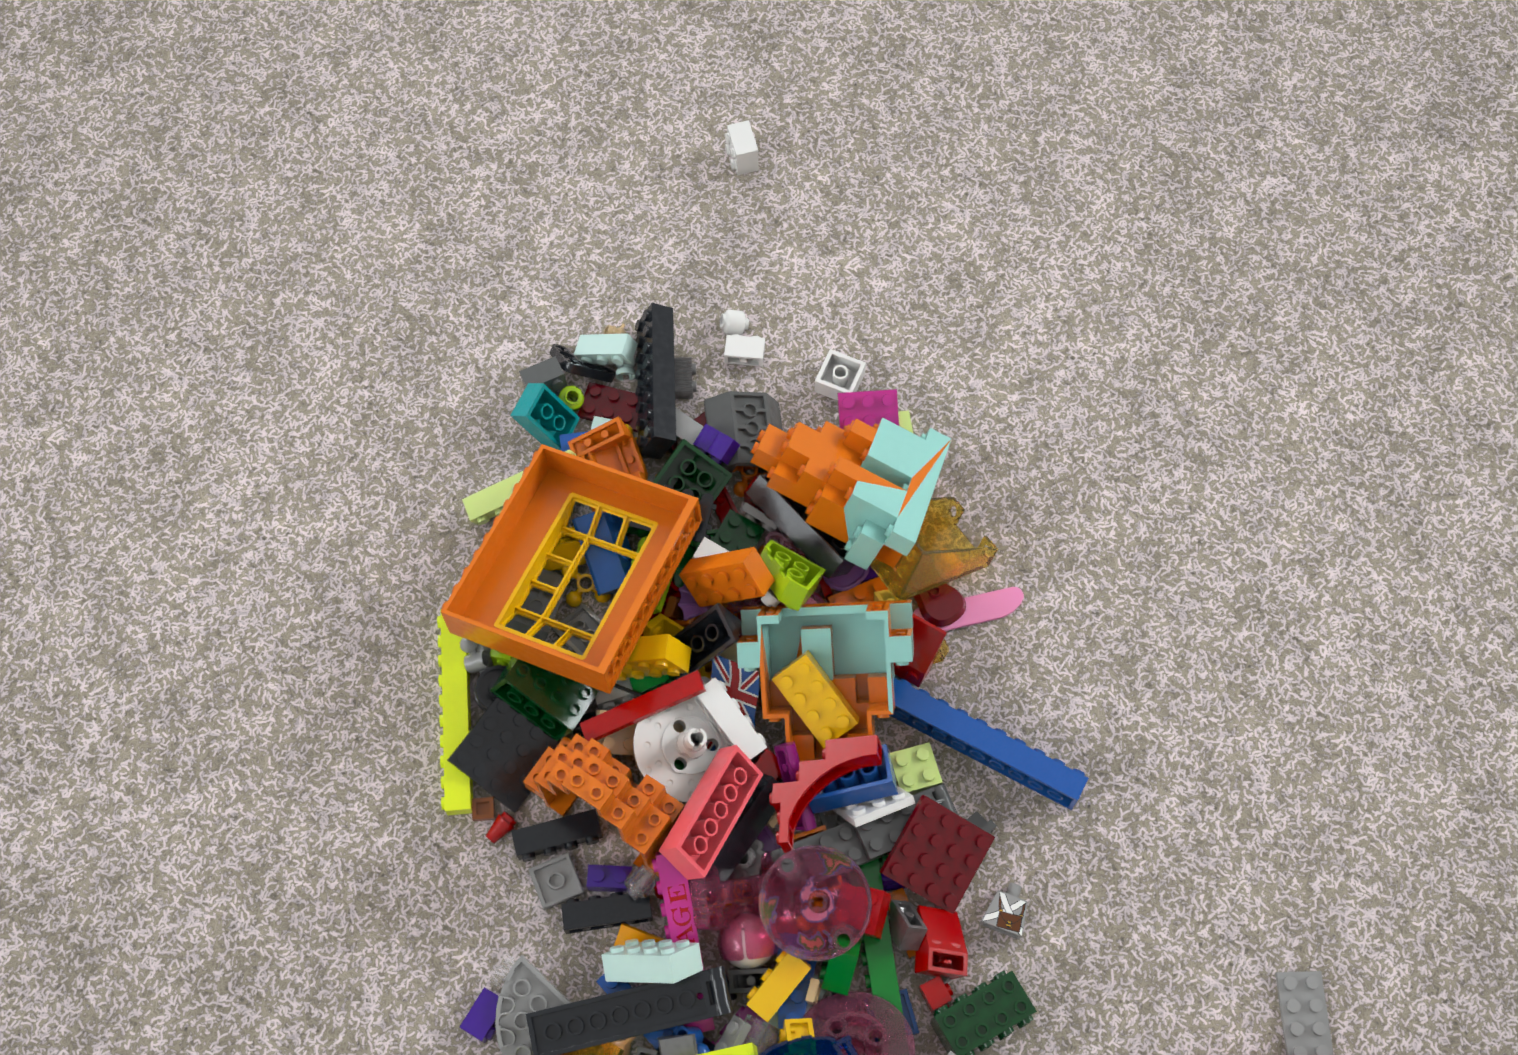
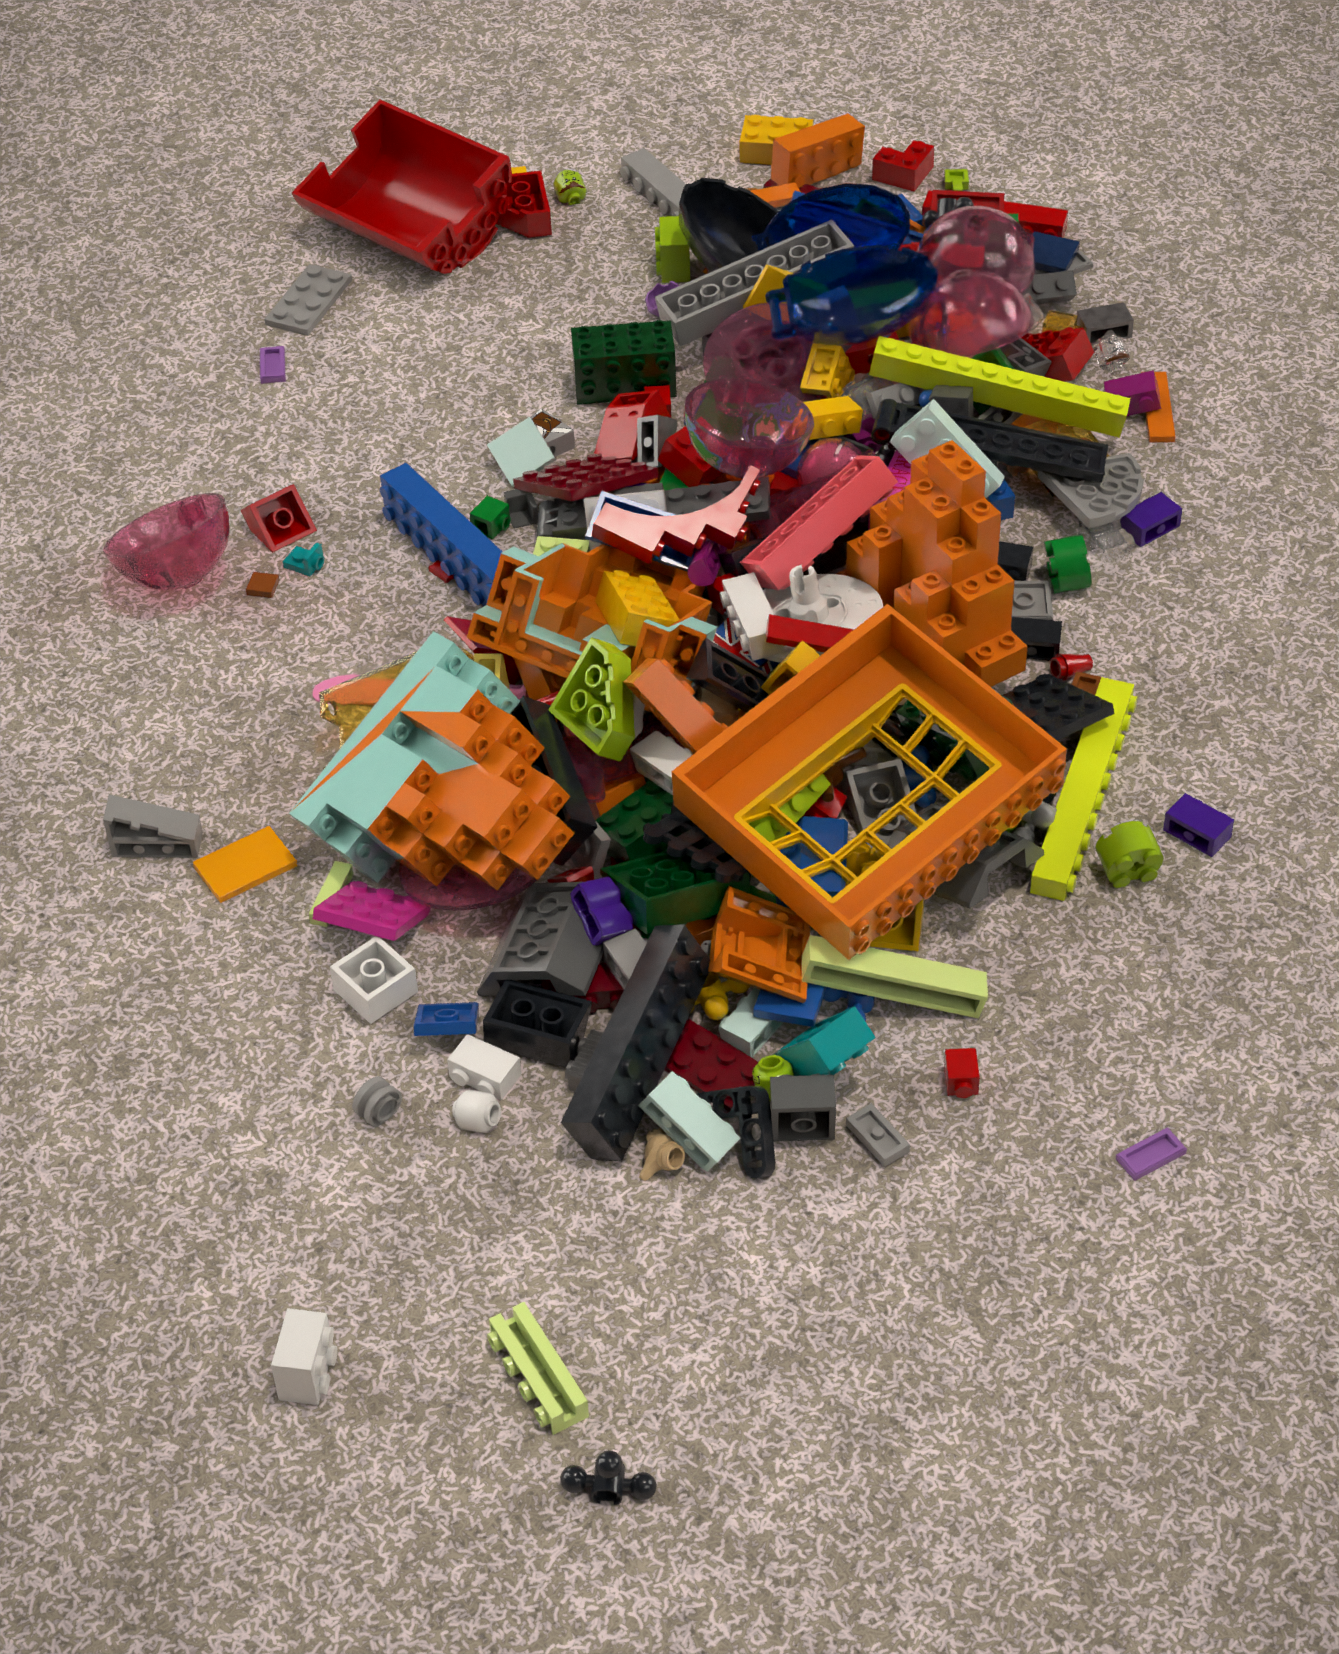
camera: 155 degrees left, 20 degrees down
(337, 447) = (1151, 1154): none -> medium lavender tile
(368, 705) = (1198, 825): none -> dark purple brick
(405, 651) = (1129, 854): none -> lime brick
(464, 452) = (961, 1072): none -> red brick
(498, 396) = (878, 1135): none -> light grey plate
(531, 924) = (1068, 564): none -> green brick
(560, 154) = (608, 1480): none -> black piece
(624, 195) = (541, 1366): none -> yellowish green brick
(725, 377) = (536, 1023): none -> black slope
(782, 370) = (446, 1019): none -> blue tile
(792, 304) = (376, 1101): none -> light grey wheel
(975, 438) = (244, 864): none -> light orange tile
(995, 805) = (491, 516): none -> green brick
(1008, 878) = (521, 450): none -> light aqua tile
(1045, 429) = (150, 830): none -> light grey wedge
(1106, 709) = (305, 560): none -> teal bracket
(1121, 674) = (262, 584): none -> dark orange tile
(1152, 738) = (279, 519): none -> red slope
(1201, 651) = (172, 543): none -> clear pink piece
(1277, 920) = (272, 364): none -> medium lavender tile

